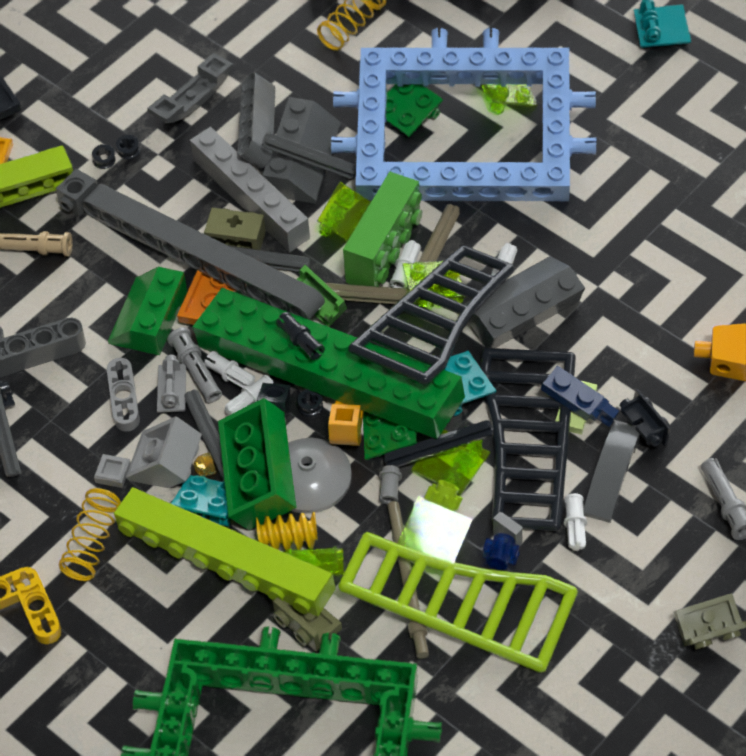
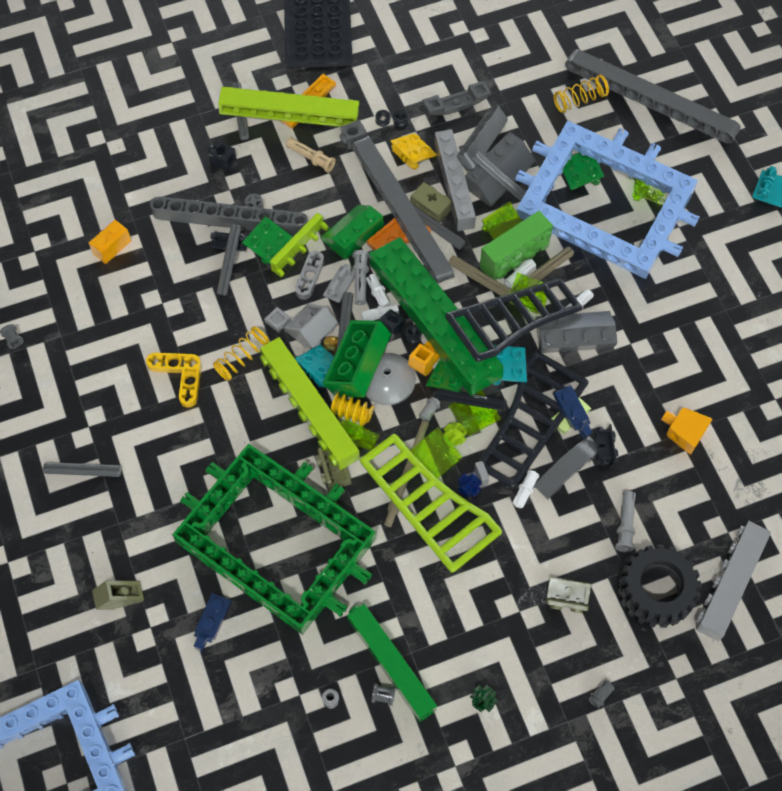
camera: 25 degrees right, 10 degrees up
(41, 374) = (267, 240): none -> green hinge
(82, 362) = (297, 244): none -> lime hinge
(168, 178) = (412, 150): none -> yellow hinge
(300, 336) = (423, 292): black pin -> none
(333, 305) = (460, 279): bright green hinge -> none

